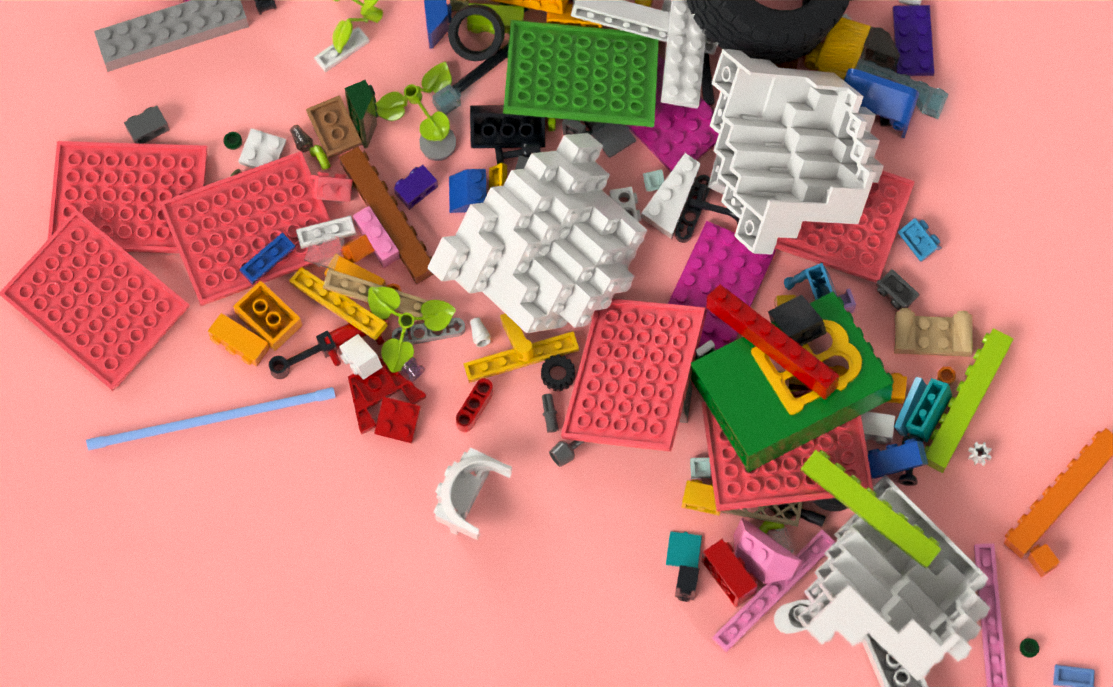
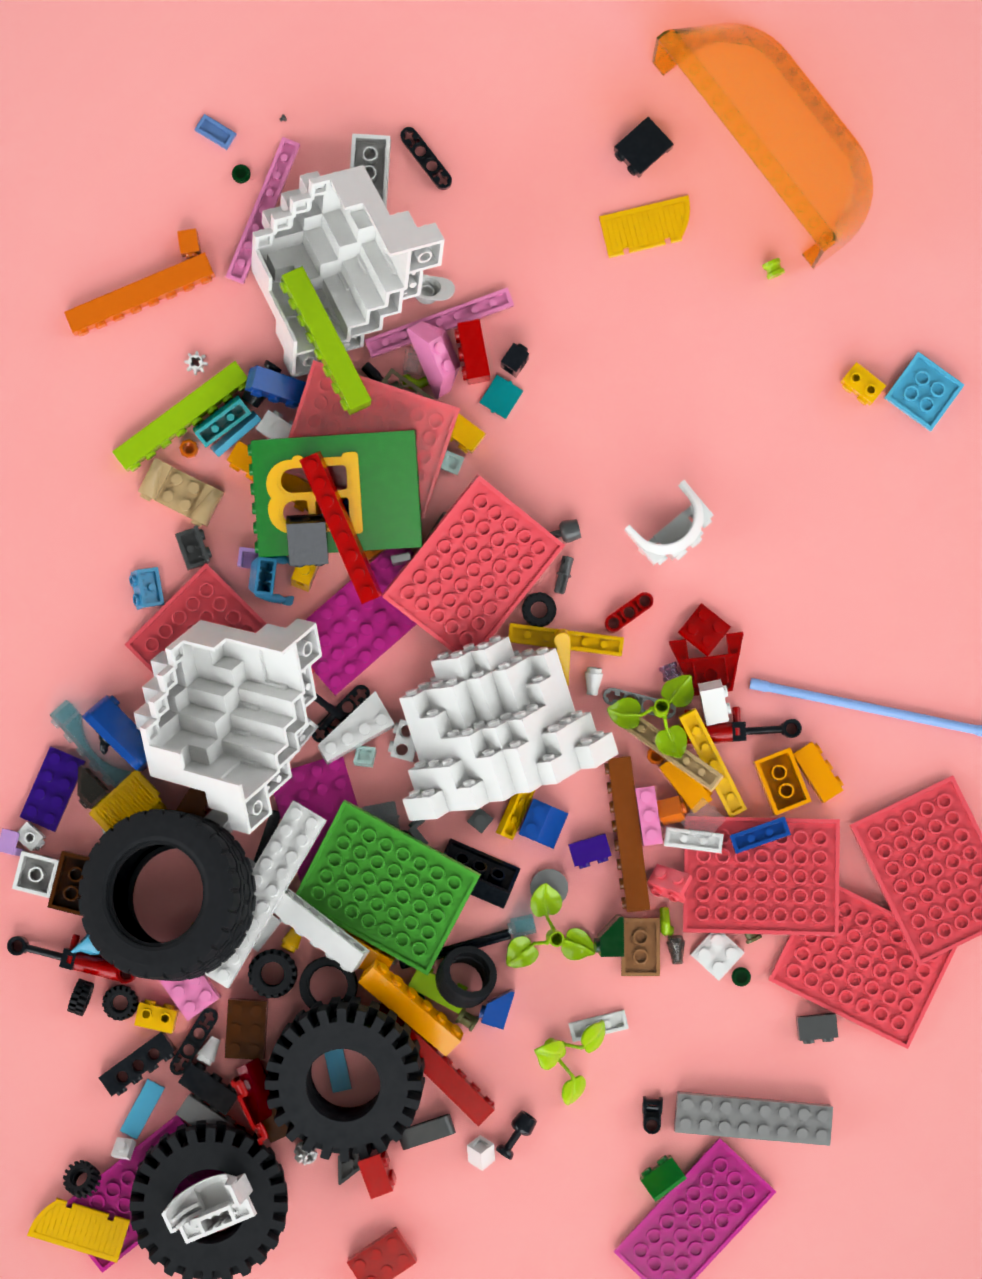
camera: 155 degrees left, 15 degrees up
(527, 148) = (468, 837): black piece -> none

